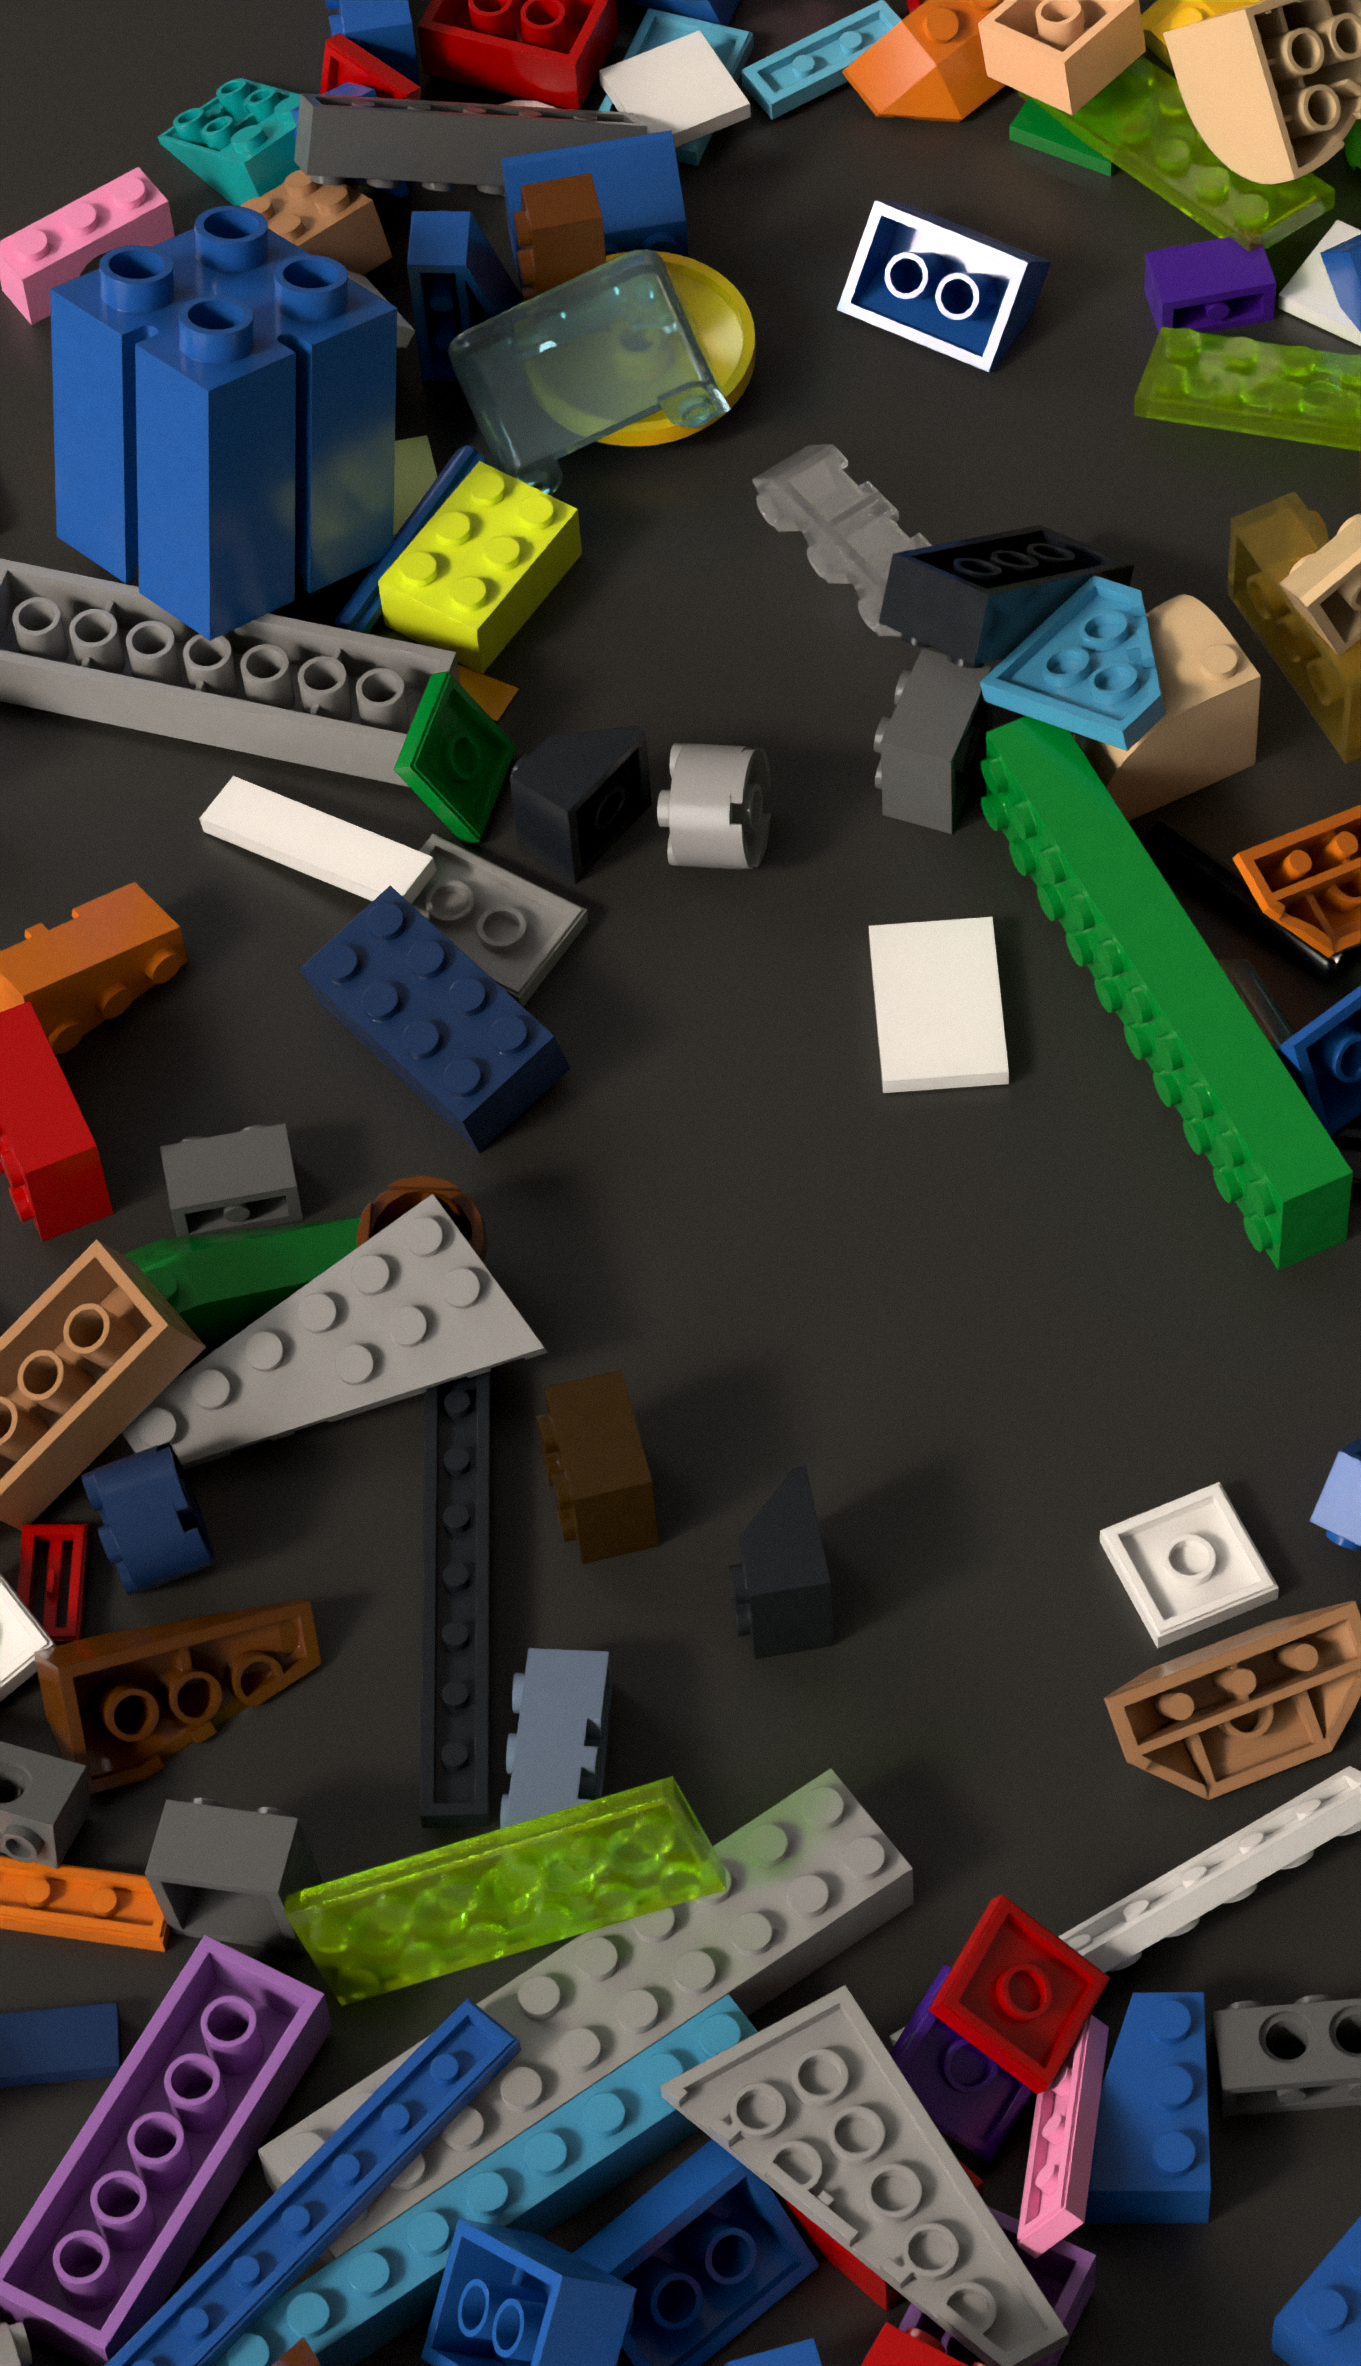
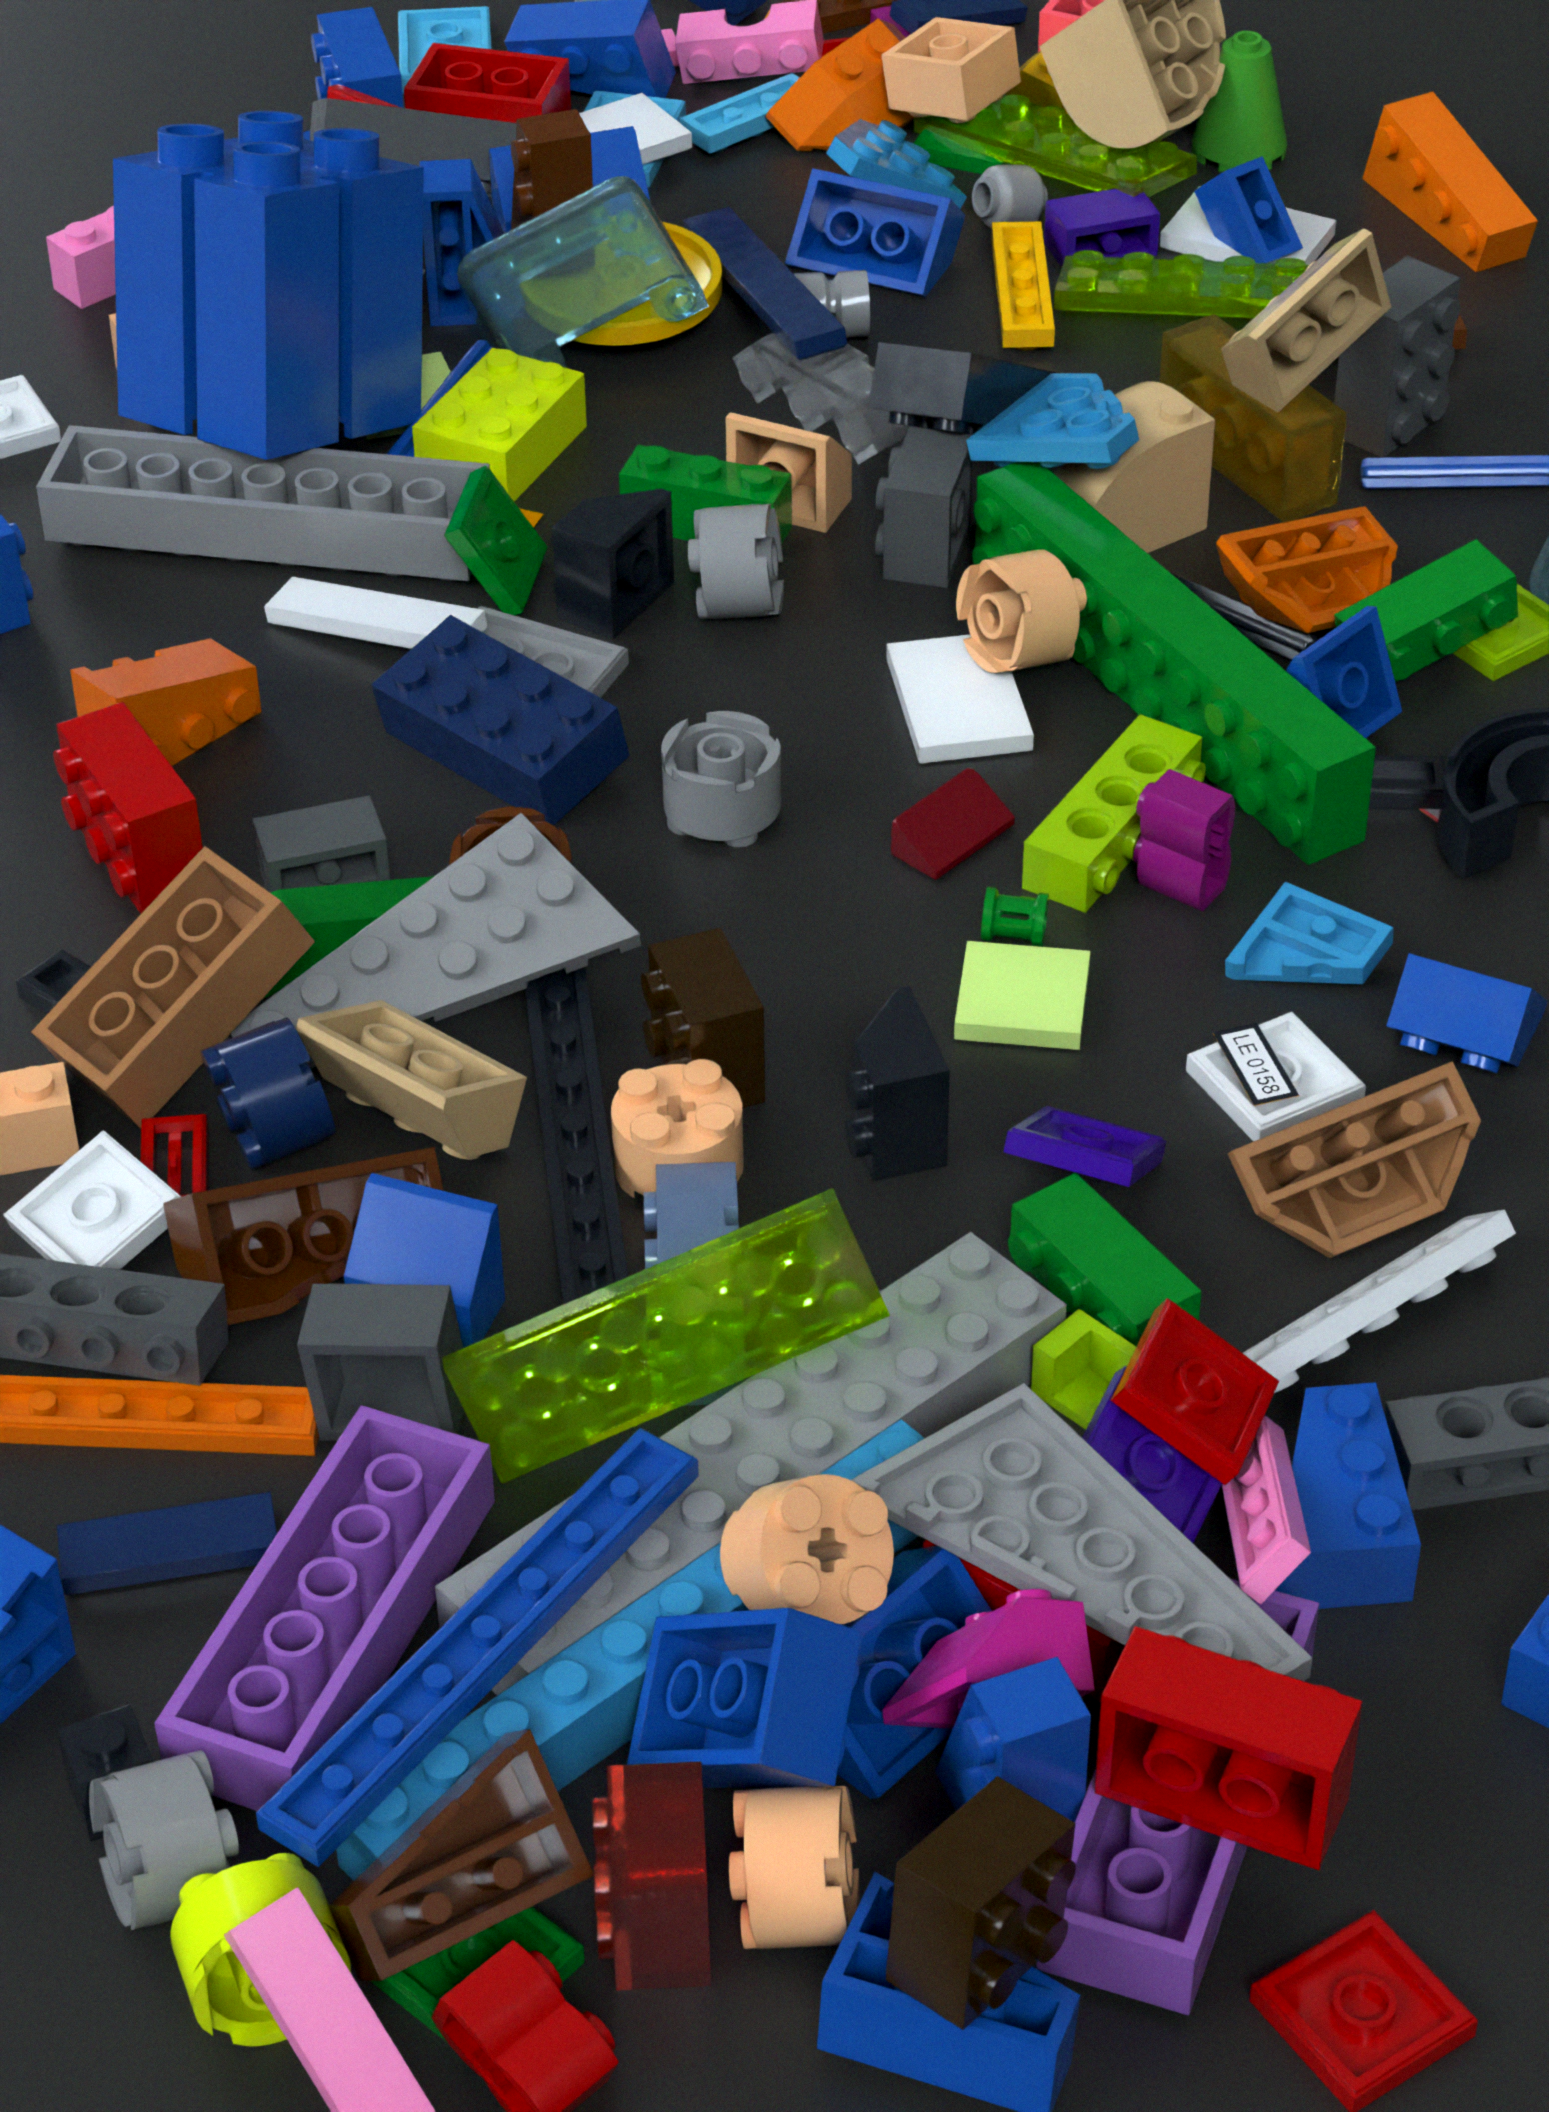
camera: 10 degrees left, 15 degrees down
(285, 1754) = (431, 1239): none -> blue slope
(301, 1508) = (416, 1076): none -> tan slope
(557, 1592) = (674, 1119): none -> light nougat brick
(610, 2162) = (810, 1548): none -> light nougat brick
(661, 1119) = (721, 778): none -> light grey brick
(692, 696) = (706, 483): none -> green brick
(776, 2294) = (989, 1645): none -> dark pink slope
(789, 669) = (816, 463): none -> light nougat slope
(798, 375) = (769, 285): none -> dark blue tile
(876, 399) = (844, 297): none -> light grey wheel
(901, 1193) = (949, 824): none -> dark red slope
(923, 1928) = (1077, 1365): none -> lime panel
(942, 1432) = (1022, 995): none -> yellowish green tile
(948, 1331) = (998, 904): none -> green bush
(963, 1808) = (1095, 1258): none -> green brick
(970, 1652) = (1085, 1146): none -> dark purple tile
(975, 171) = (884, 157): none -> dark azure plate
(1011, 917) = (1020, 611): none -> light nougat brick
(1103, 371) = (1022, 285): none -> yellow plate
(1109, 228) = (1009, 194): none -> light grey head
(1120, 1119) = (1096, 825): none -> lime brick
(1138, 1254) = (1184, 839): none -> magenta brick
(1167, 1552) = (1255, 1064): none -> sticker
(1254, 1389) = (1309, 941): none -> dark azure wing

